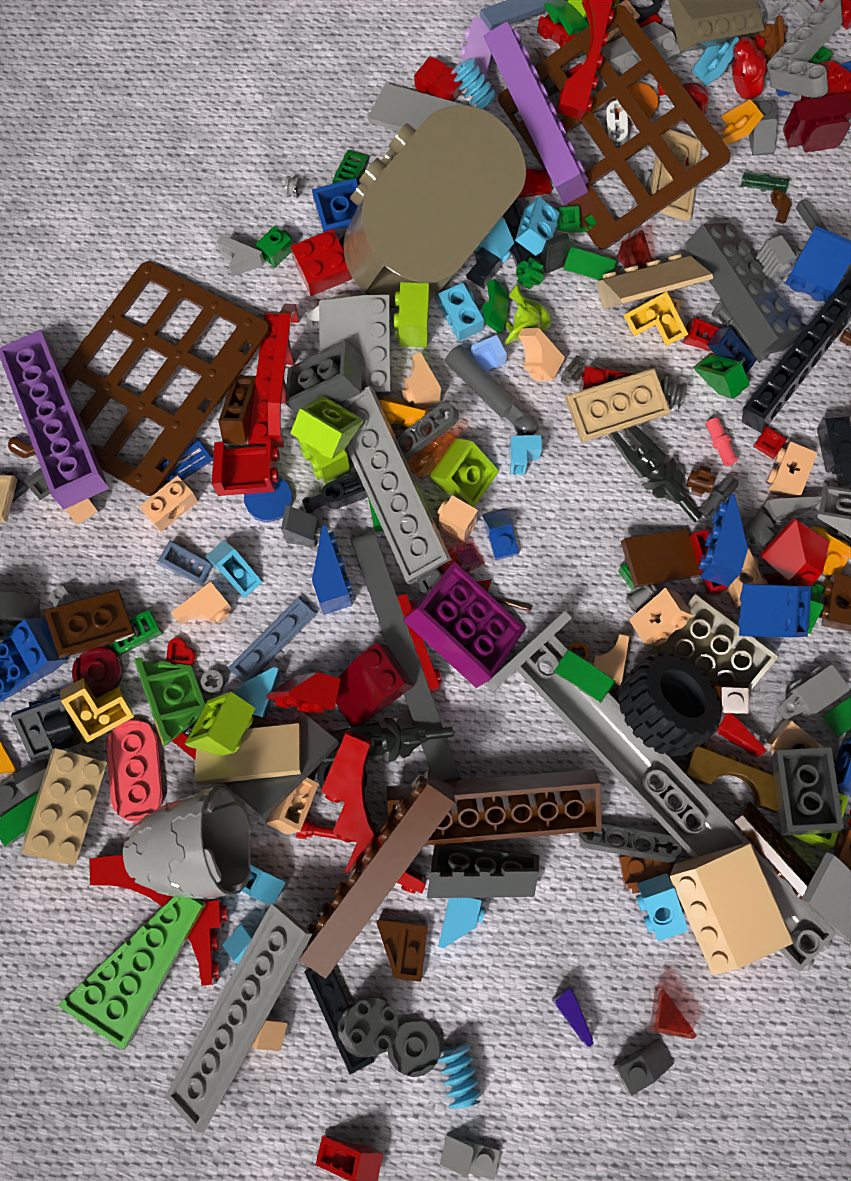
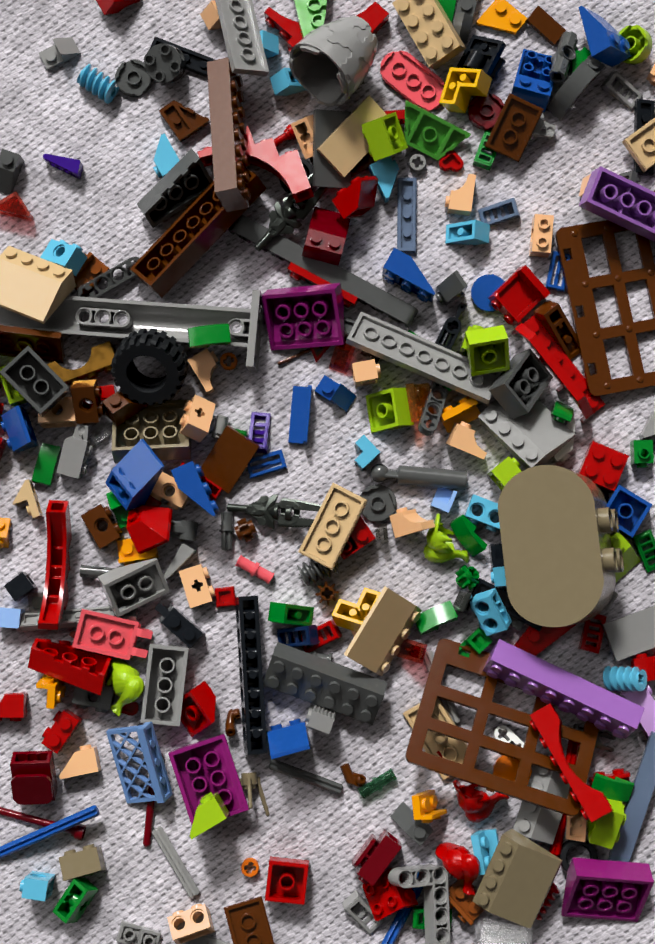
camera: 140 degrees right, 10 degrees up
(309, 332) = (562, 412): none -> green slope
(544, 405) = (378, 509): none -> dark grey tile
(551, 541) = (300, 415): none -> blue panel
(600, 555) = (262, 416): none -> dark purple slope
(616, 532) = (281, 459): none -> blue tile
(671, 358) = (323, 589): none -> reddish brown gear
(762, 729) = (84, 411): none -> reddish brown brick

